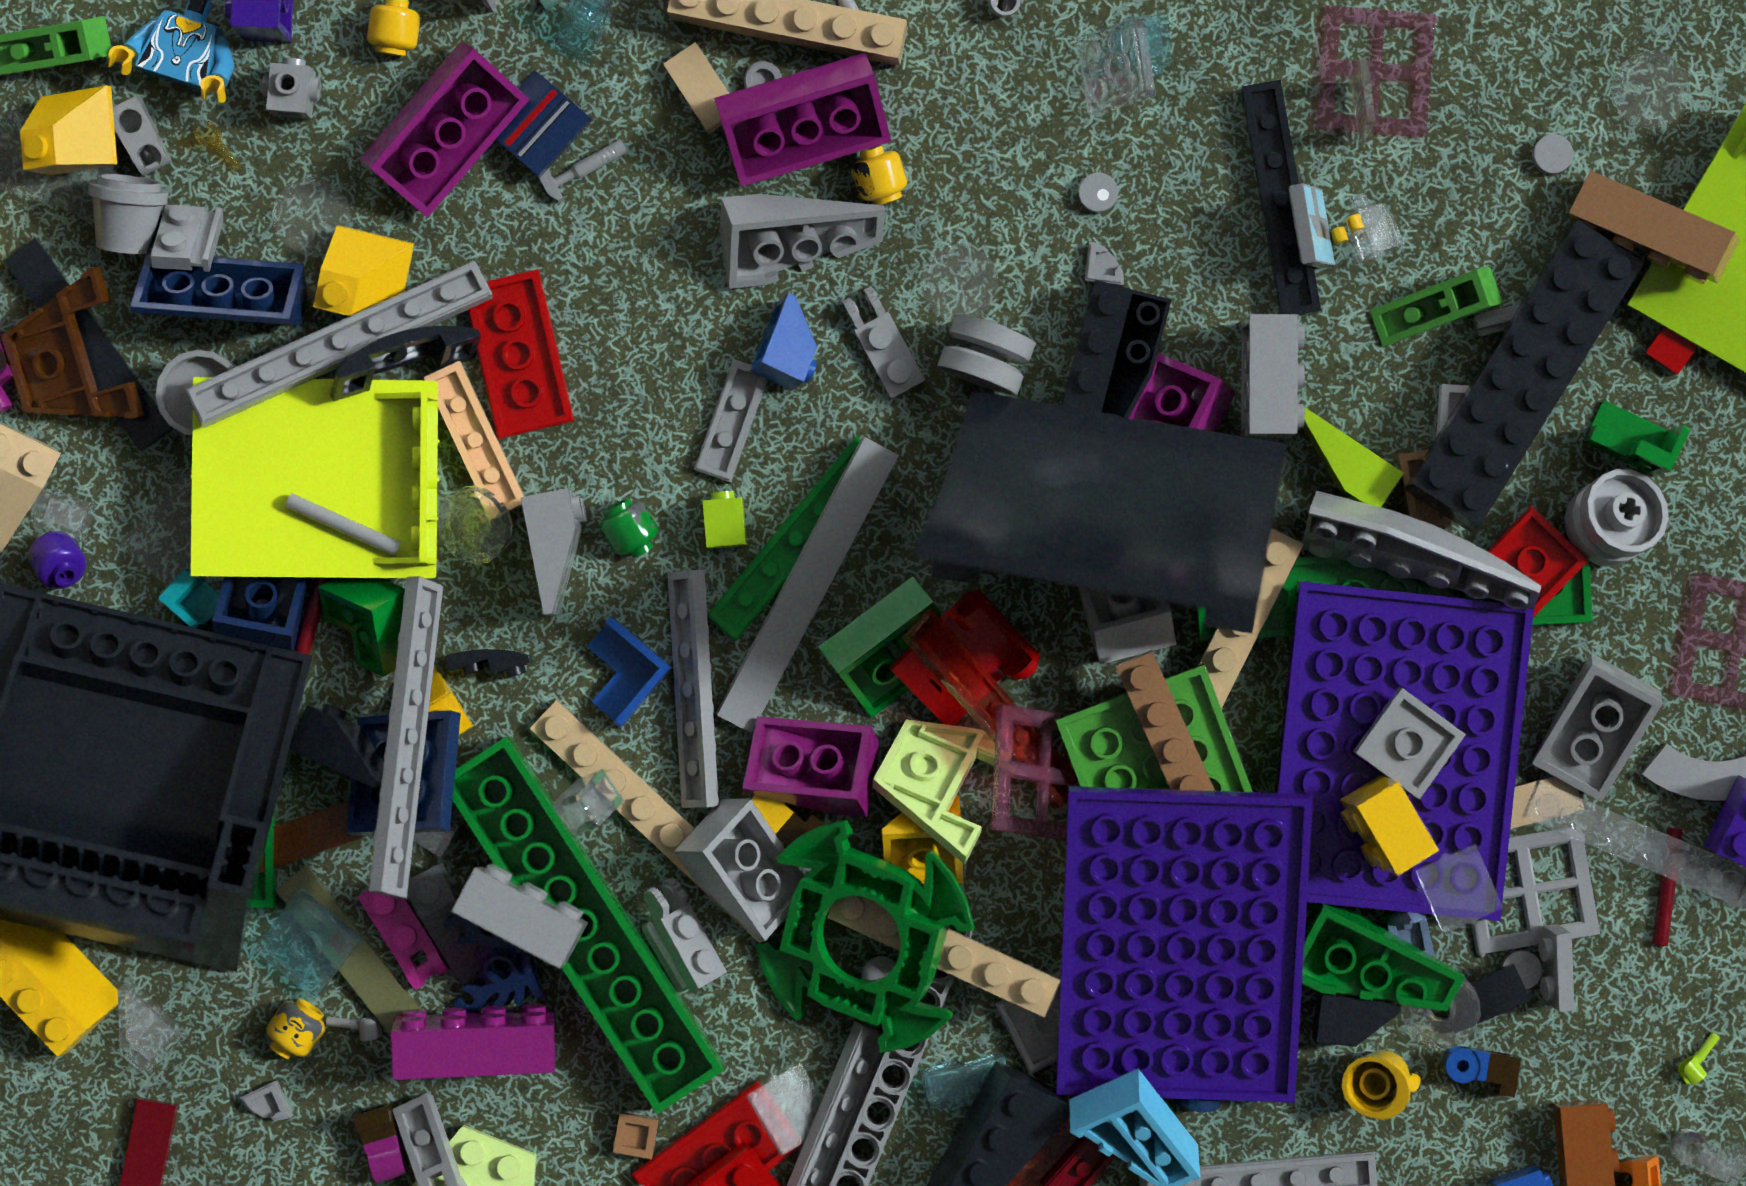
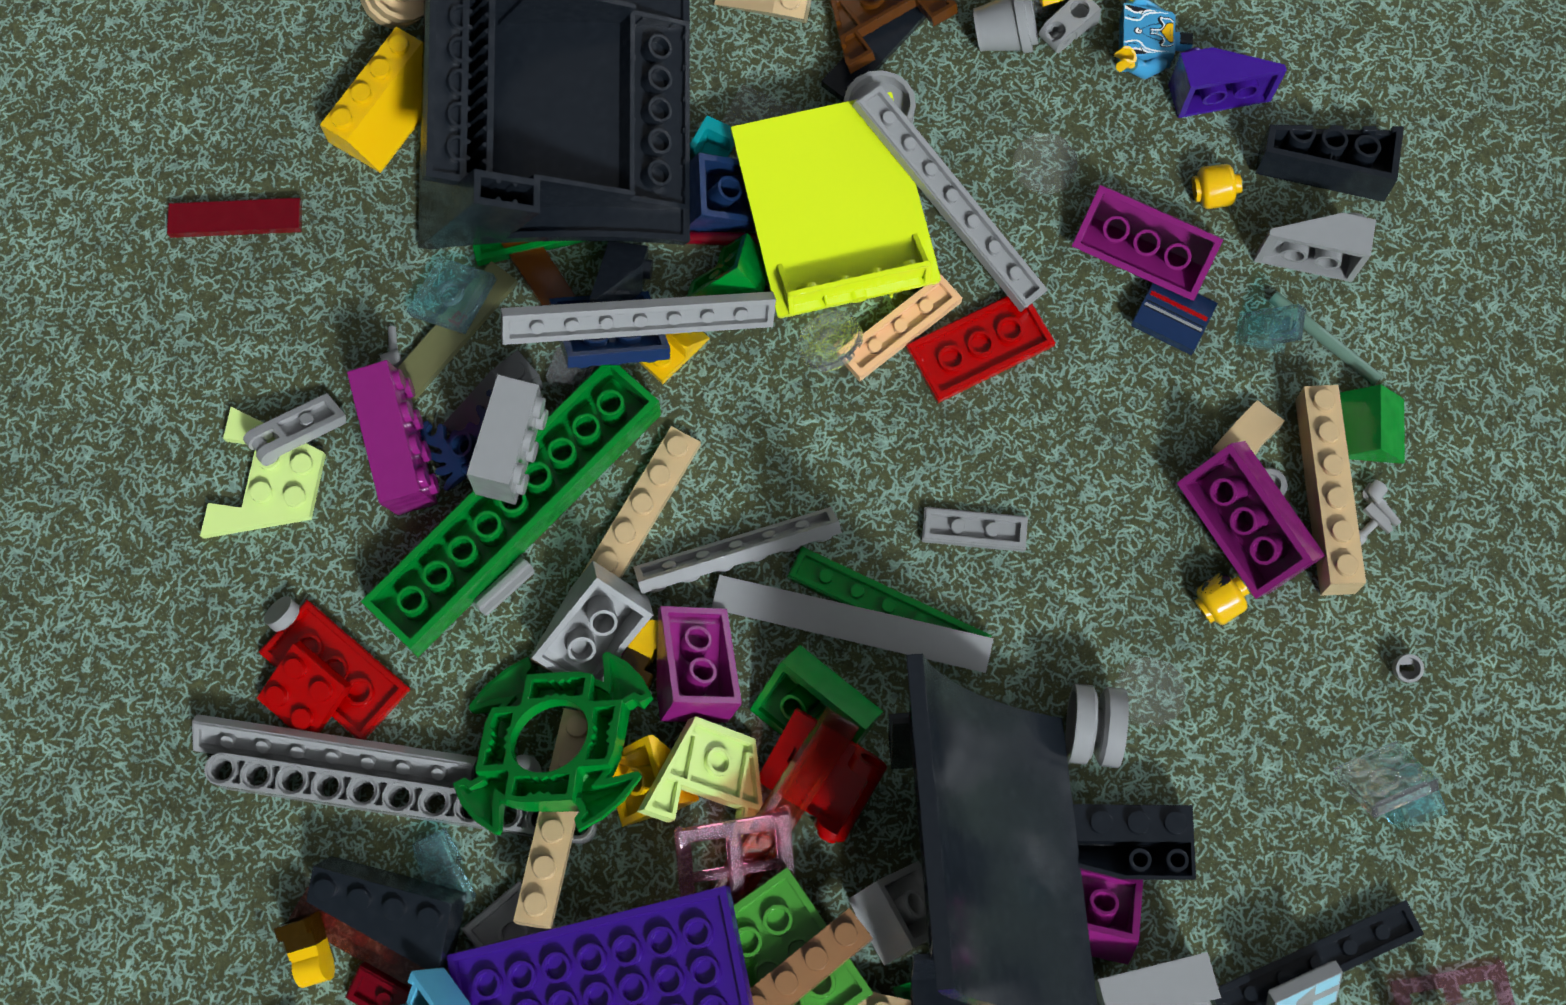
camera: 75 degrees right, 15 degrees down
(57, 560) = (718, 39): dark purple head -> none
(63, 513) = (756, 37): clear brick -> none
(145, 1029) = (357, 189): clear slope -> none
(186, 238) = (1000, 72): light grey plate -> none
(216, 143) = (1082, 79): clear yellow hand -> none
(227, 292) = (966, 104): dark blue slope -> none
(268, 1102) = (315, 297): light grey tile -> none
(295, 1028) = (380, 302): yellow head -> none
(296, 101) = (1142, 120): light grey brick -> none
(343, 524) = (802, 232): light grey bar -> none
(361, 271) = (1013, 204): yellow slope -> none
(382, 1142) = (296, 389): leg -> none
(404, 936) = (474, 368): dark pink plate -> none
(405, 347) = (957, 244): black slope -> none
(500, 661) = (720, 386): black slope -> none
(553, 537) = (830, 404): light grey slope -> none
(582, 168) = (1148, 358): light grey piece -> none
(587, 802) = (618, 483): clear brick -> none
(629, 528) = (860, 464): green head -> none
(636, 668) = (740, 502): blue panel -> none
(636, 1135) = (341, 595): medium nougat plate -> none
(683, 935) = (522, 594): light grey hinge -> none
(724, 520) = (887, 541): lime brick -> none
(777, 232) = (1148, 530): light grey wedge -> none
(786, 346) = (1050, 556): slope -> none
(787, 1107) = (390, 717): clear piece -> none
(885, 347) = (1074, 642): light grey hinge -> none
(1098, 192) = (1267, 794): light grey tile -> none
(1102, 266) = (1205, 814): light grey tile -> none

